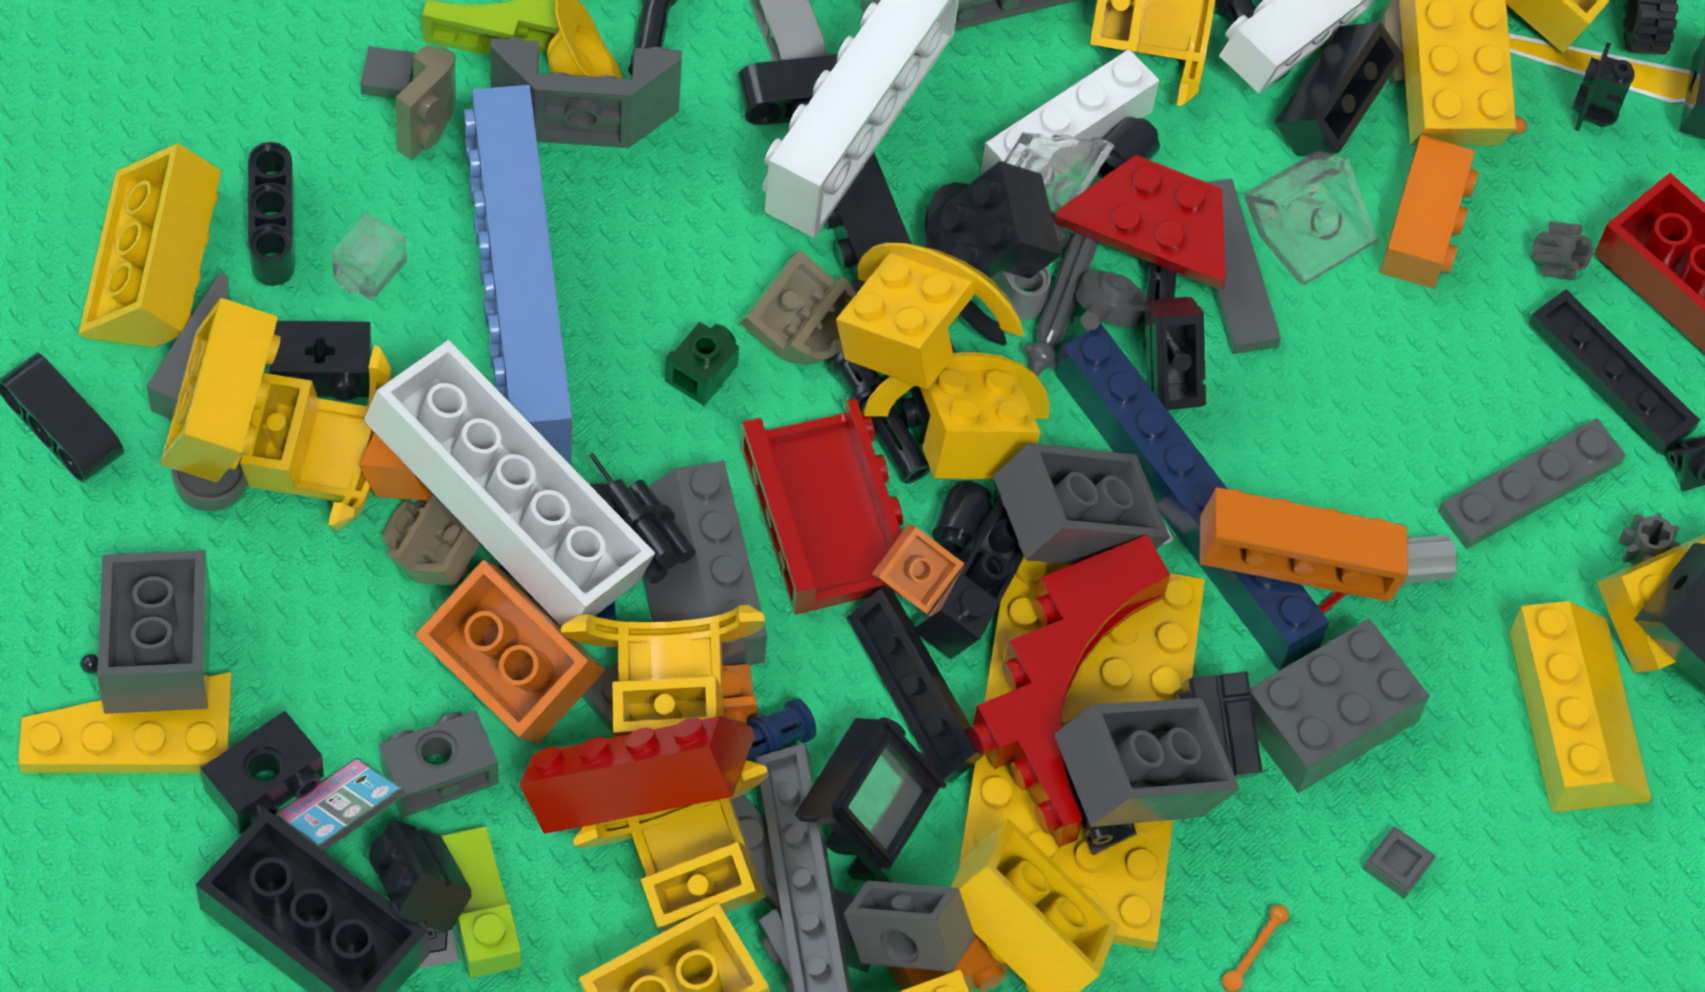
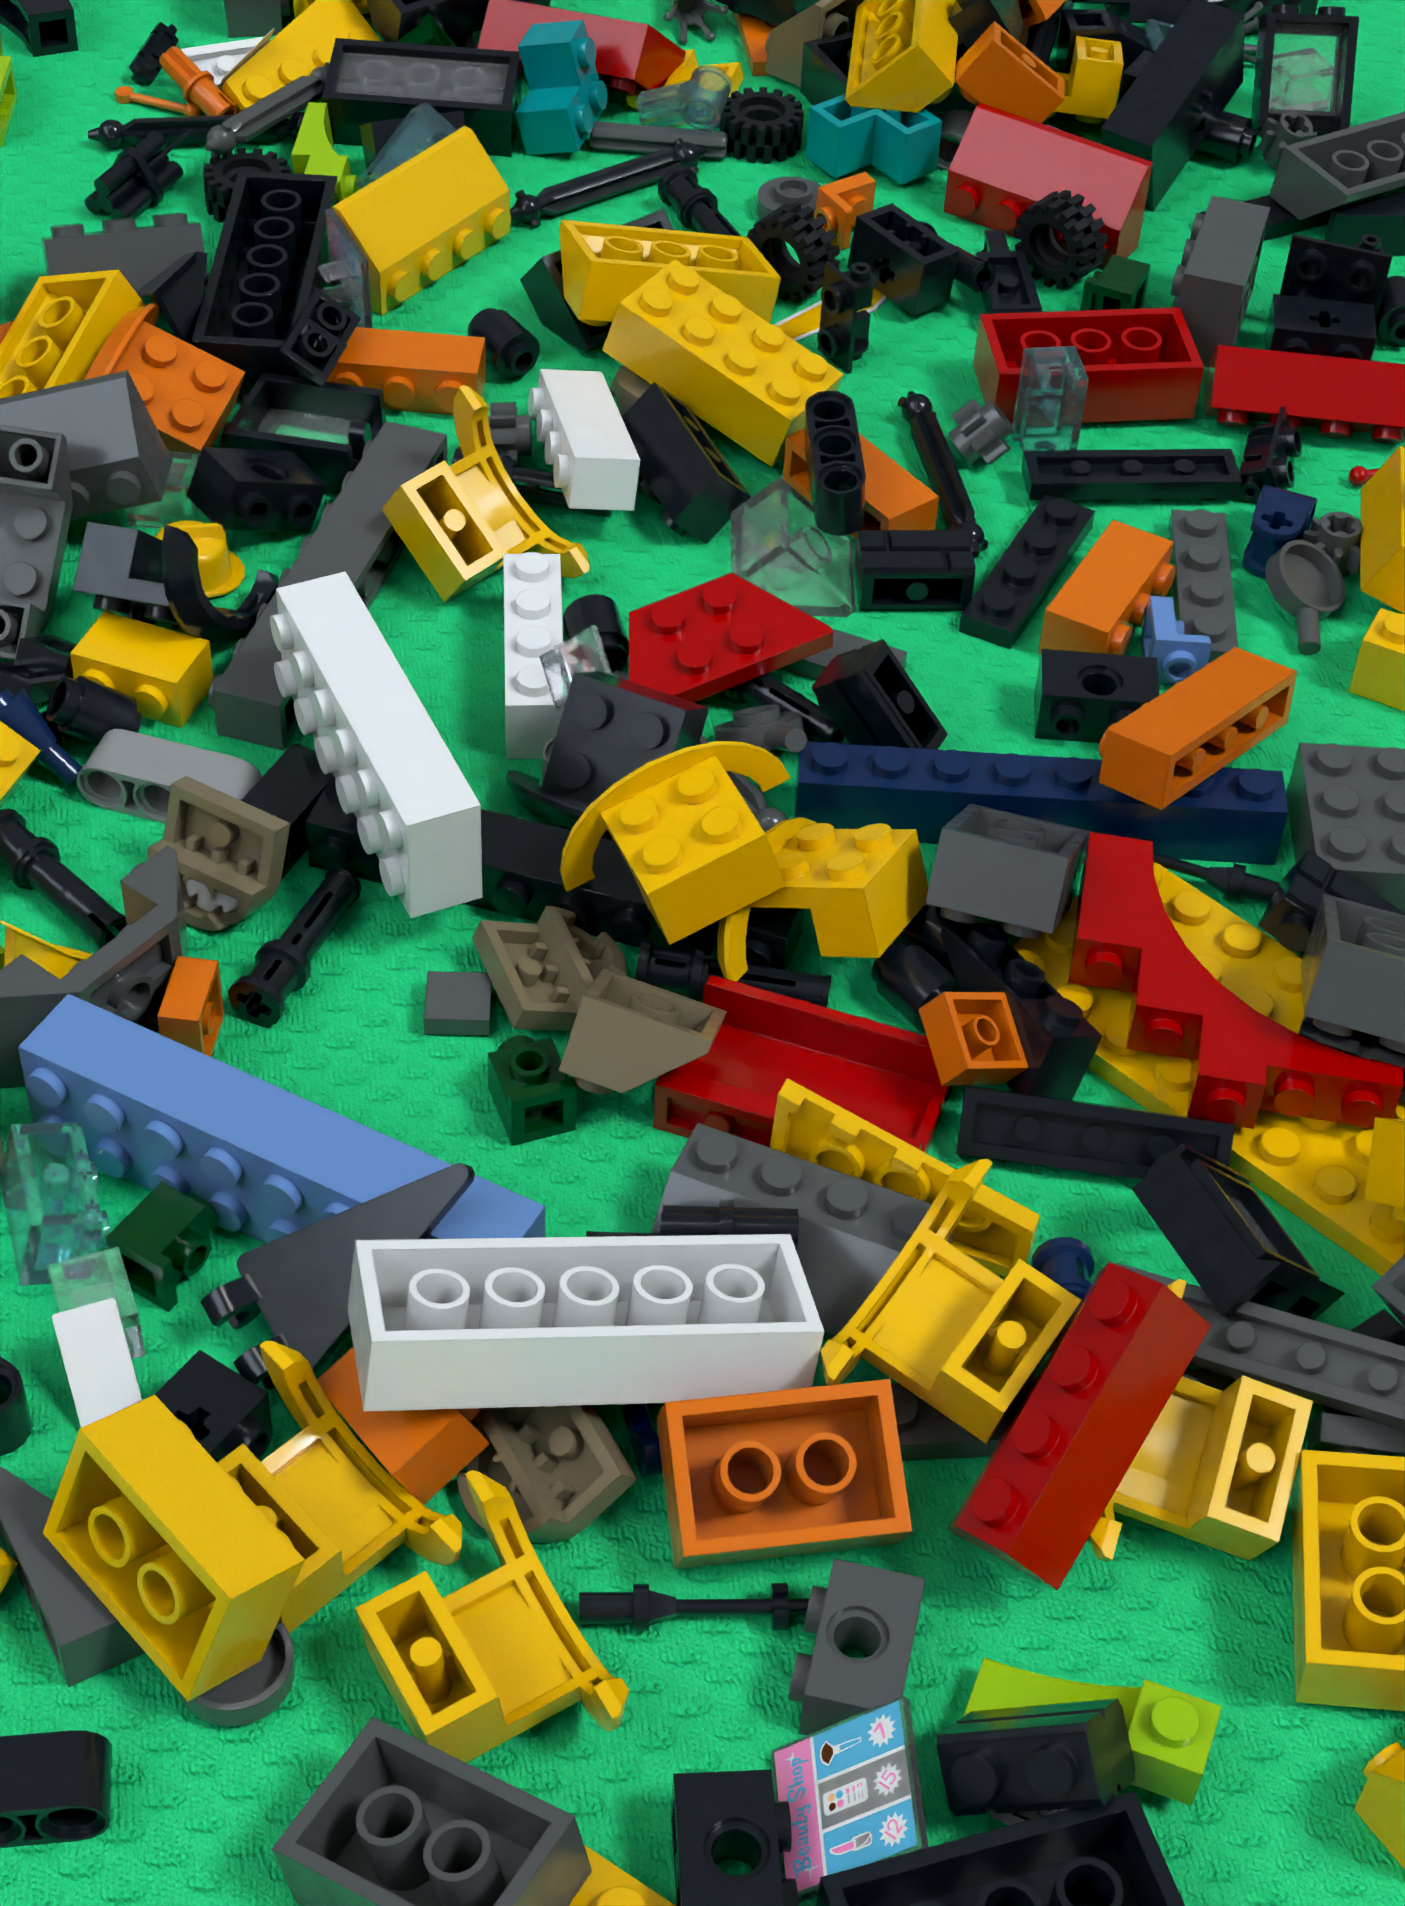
camera: 50 degrees left, 15 degrees down
(296, 583) = (490, 1653): none -> yellow piece
(331, 282) = (96, 1360): none -> white sticker
(393, 642) = (649, 1607): none -> black piece
(415, 182) = (50, 1198): none -> clear light blue brick
(439, 255) = (164, 1242): none -> dark green brick
(479, 342) = (306, 1275): none -> black flag
(605, 154) = (193, 1004): none -> orange piece
(693, 172) = (285, 962): none -> black pin
(730, 79) = (225, 853): none -> dark tan slope
(741, 281) = (458, 1003): none -> dark grey tile
(767, 558) = (817, 1130): none -> yellow wing
(769, 384) = (635, 1034): none -> dark tan slope
(1227, 651) = (1229, 880): none -> black piece
(1331, 451) = (1087, 692): none -> black brick
(1368, 293) = (914, 570): none -> black brick
(1405, 162) = (834, 463): none -> black beam
(1430, 488) = (1164, 639): none -> medium blue bracket
(1447, 364) = (1026, 571): none -> black plate
(1450, 427) = (1109, 592): none -> orange brick
(1503, 252) = (941, 468): none -> black wheel
(1582, 545) = (1306, 587): none -> dark grey piece
(1624, 275) = (1050, 399): none -> clear light blue hinge
(1633, 492) = (1276, 521): none -> dark blue piece

